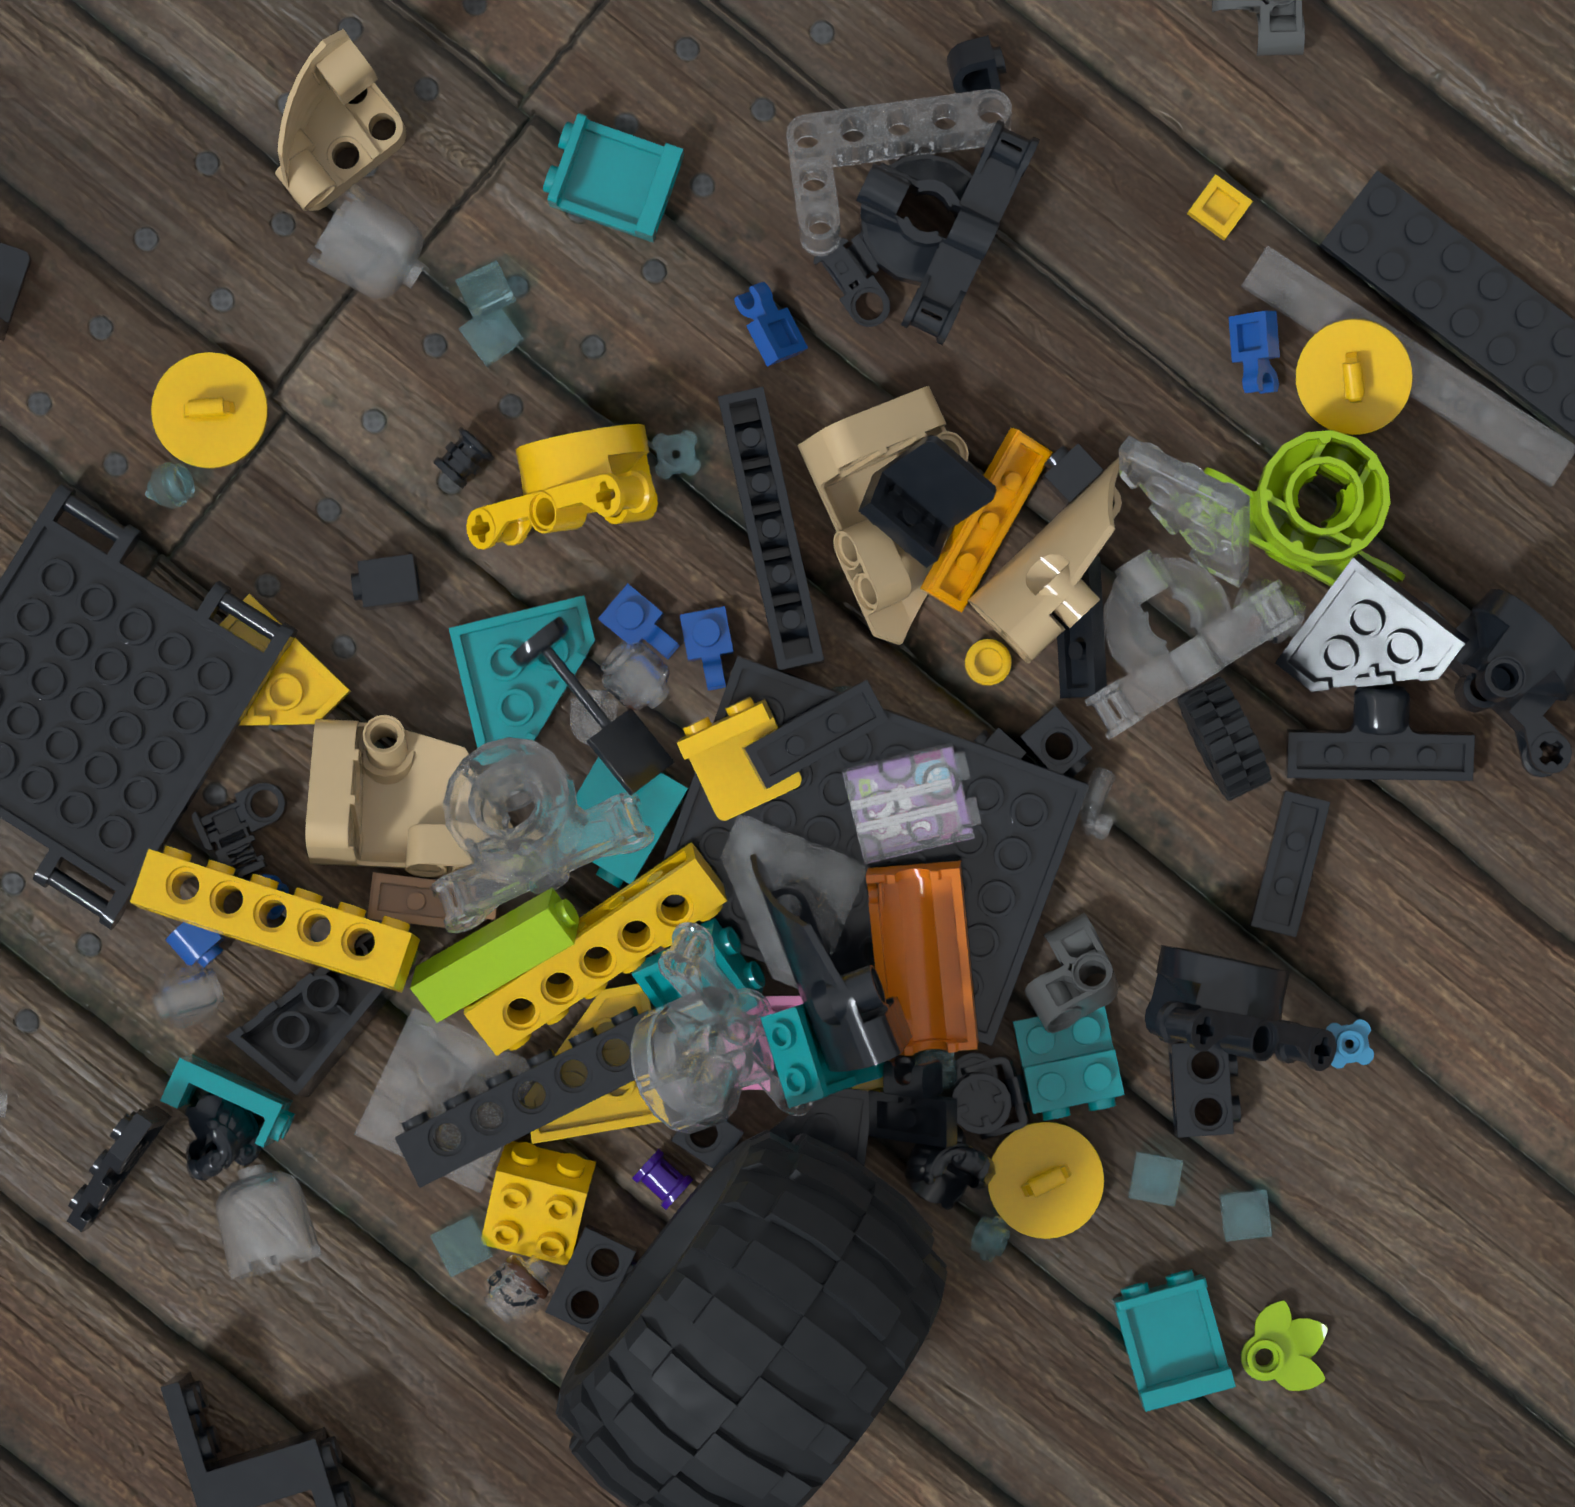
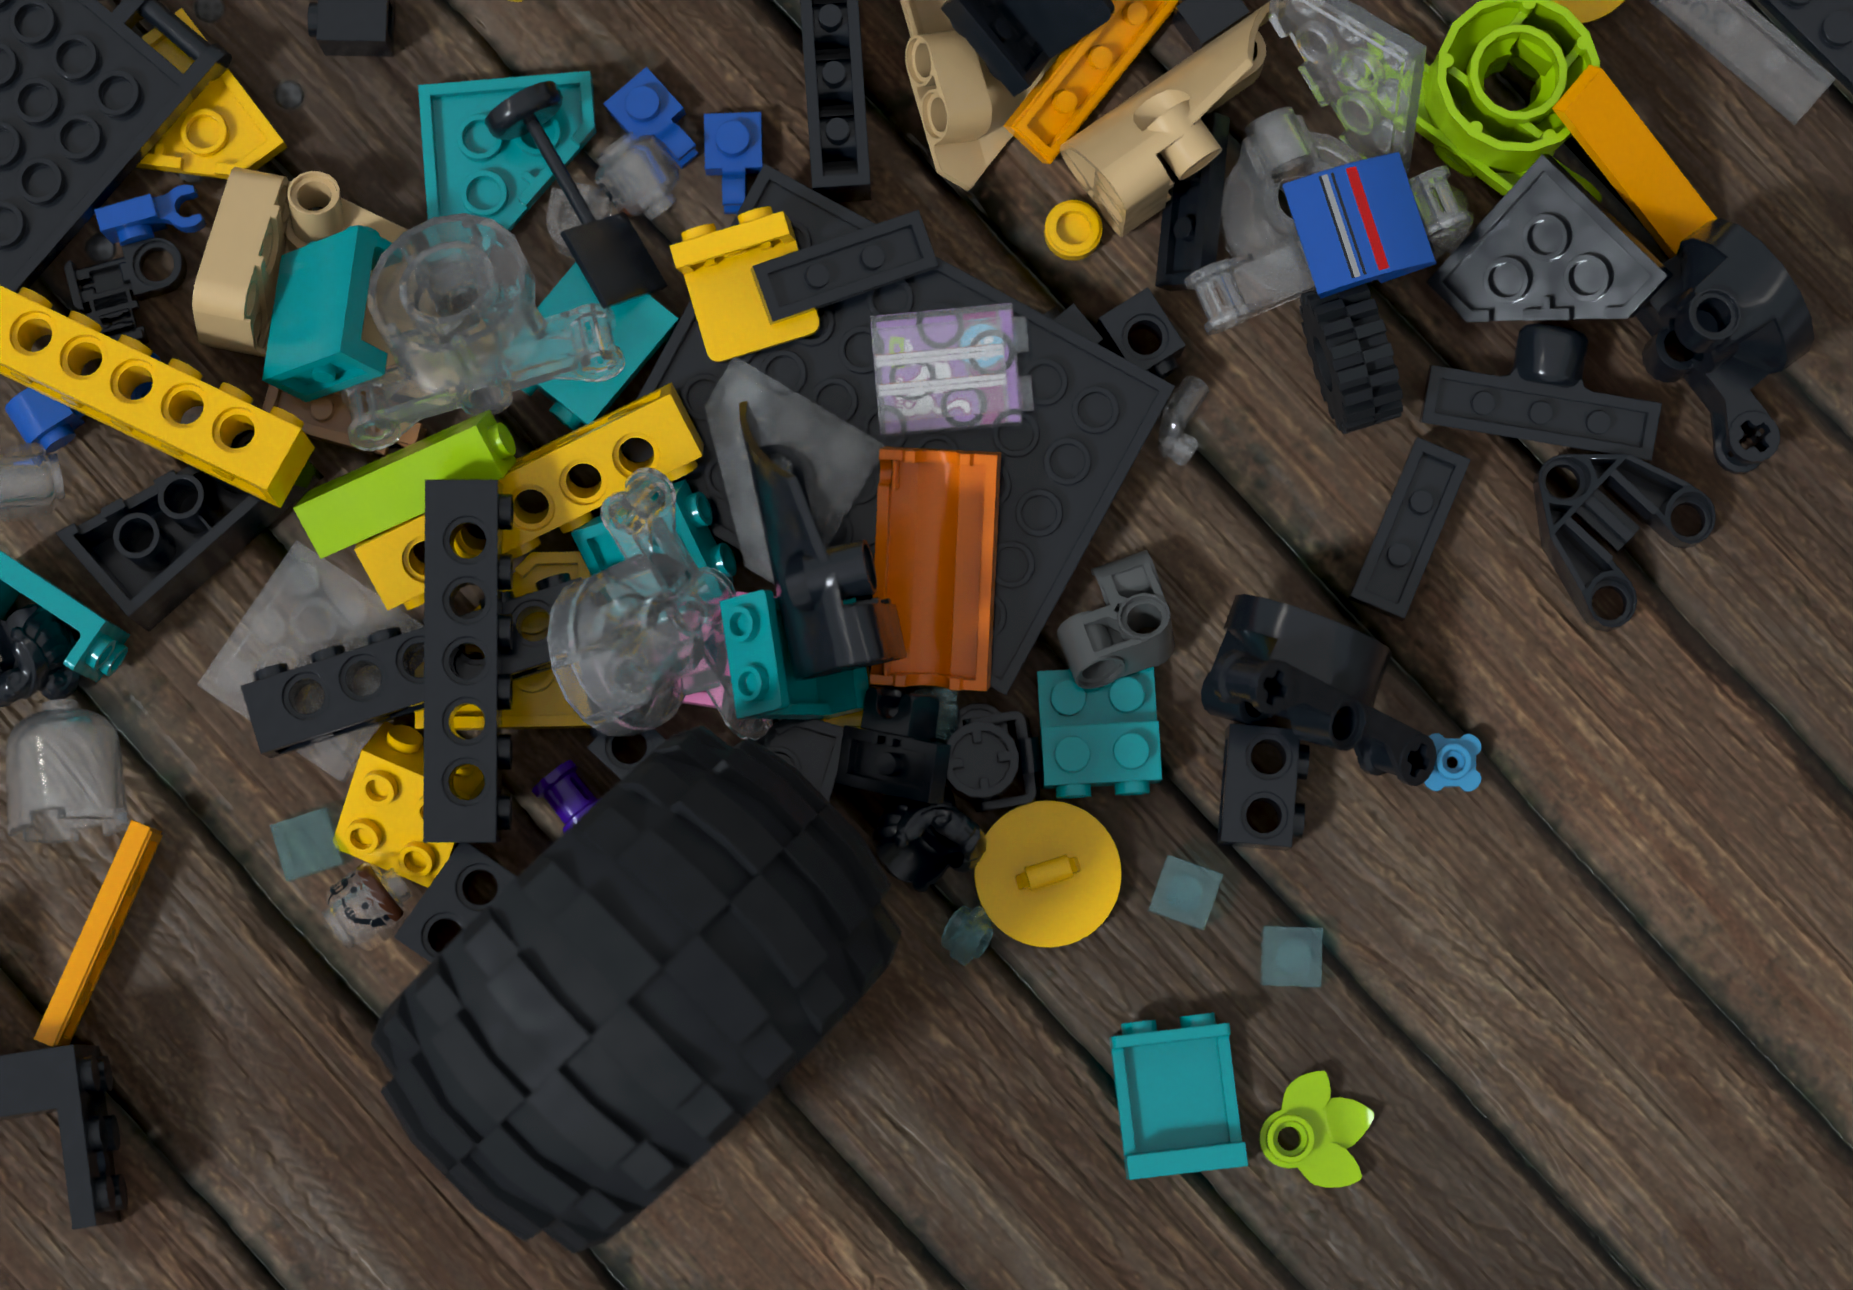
camera: 10 degrees right, 5 degrees down
(242, 771) = (141, 216): none -> blue plate
(312, 1343) = (98, 935): none -> light orange tile
(409, 831) = (321, 315): none -> teal panel
(576, 1216) = (448, 509): none -> black brick
(1216, 640) = (1359, 224): none -> blue slope
(1424, 866) = (1642, 490): none -> black connector
(1426, 549) = (1632, 159): none -> light orange tile

